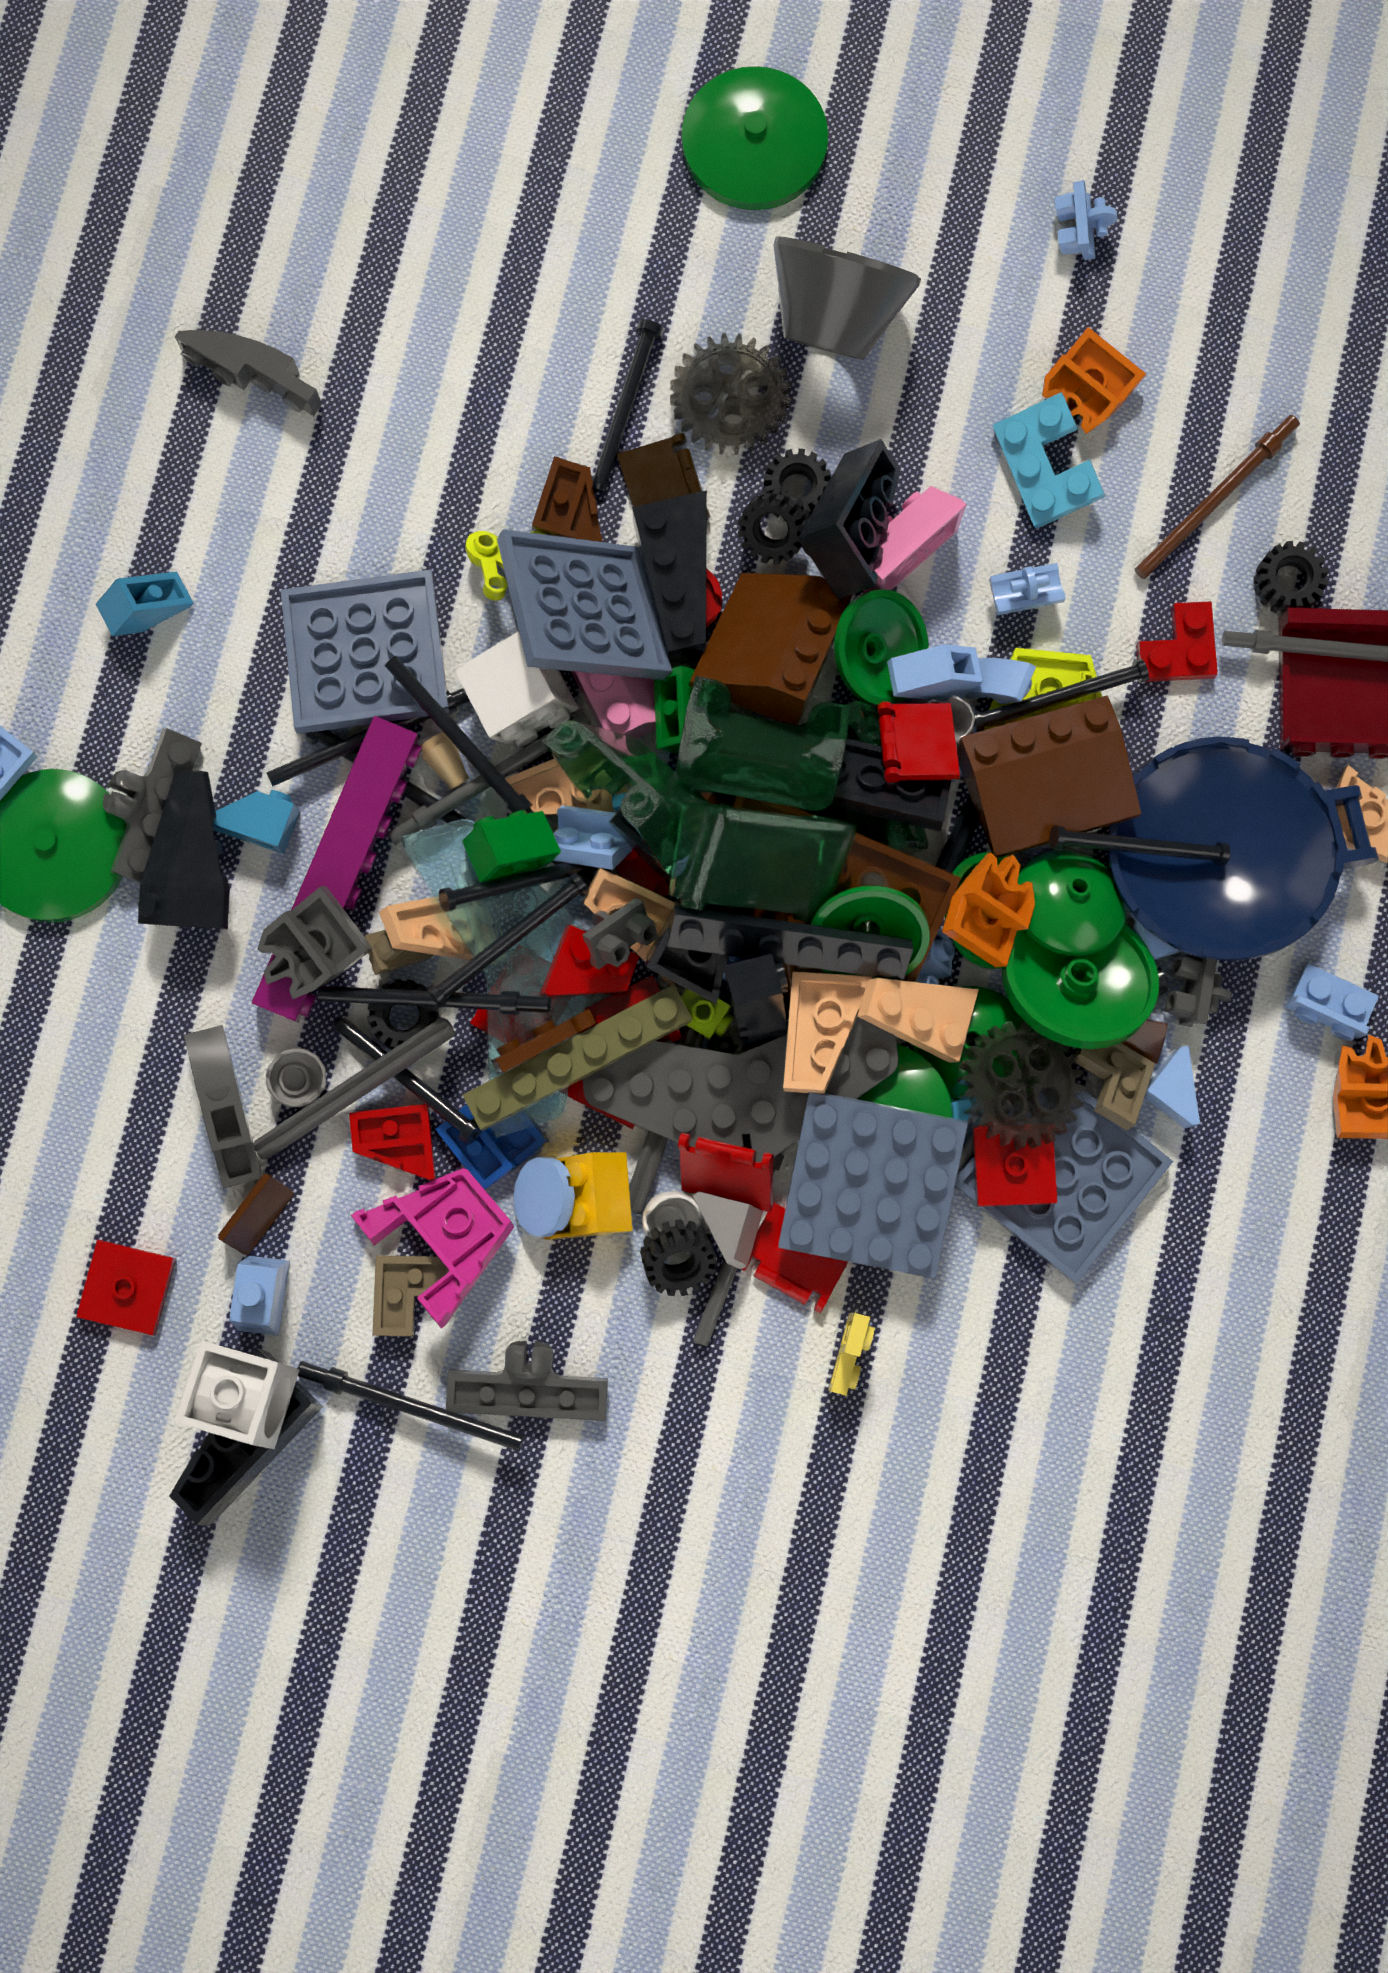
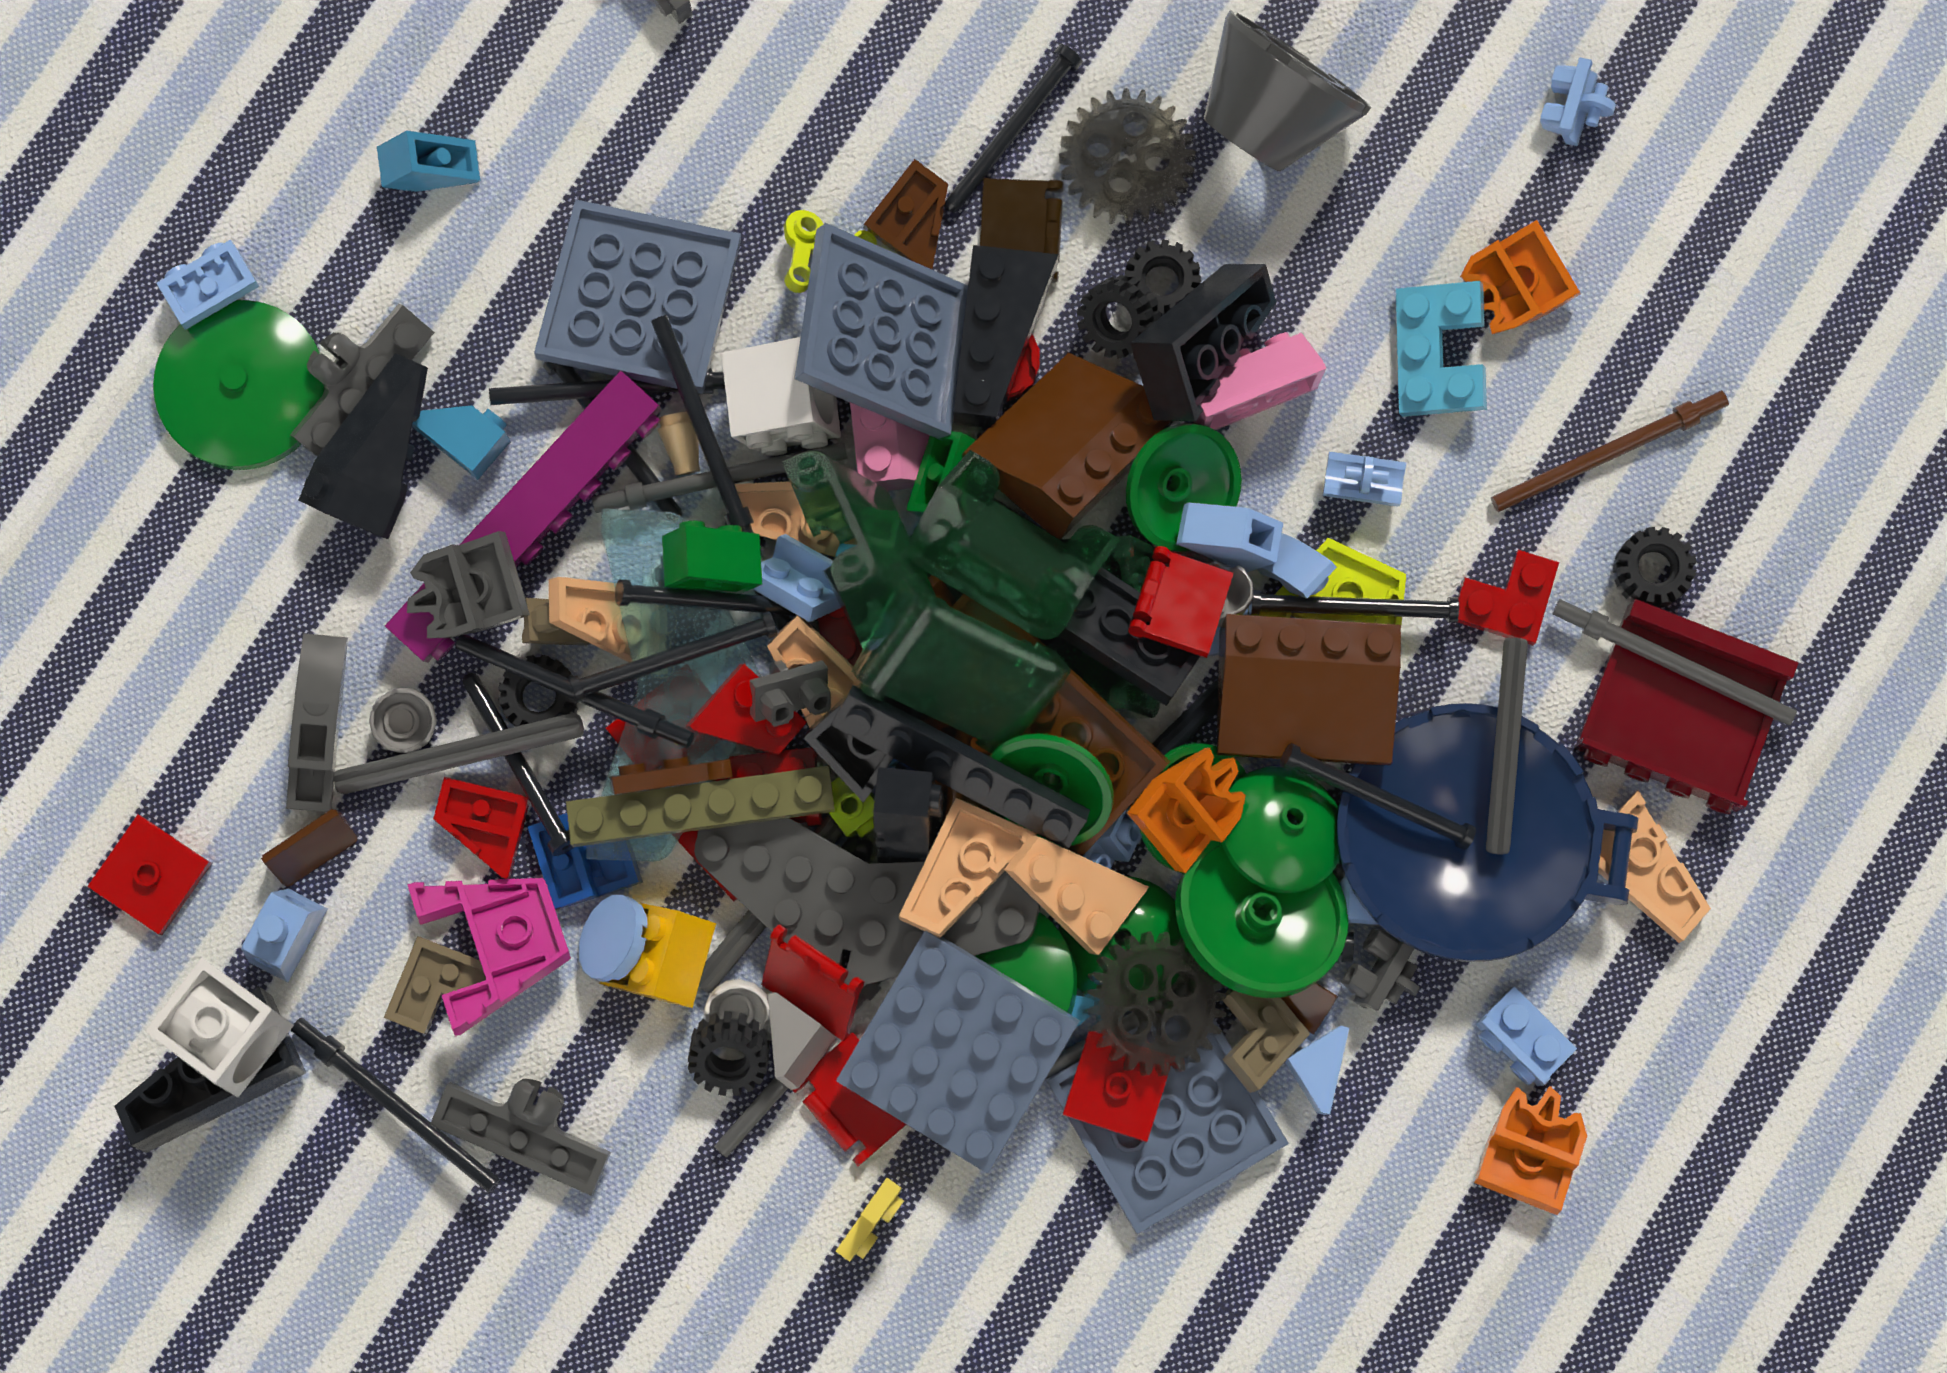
camera: 20 degrees right, 0 degrees up
(1229, 765) = (1506, 745): none -> dark grey axle

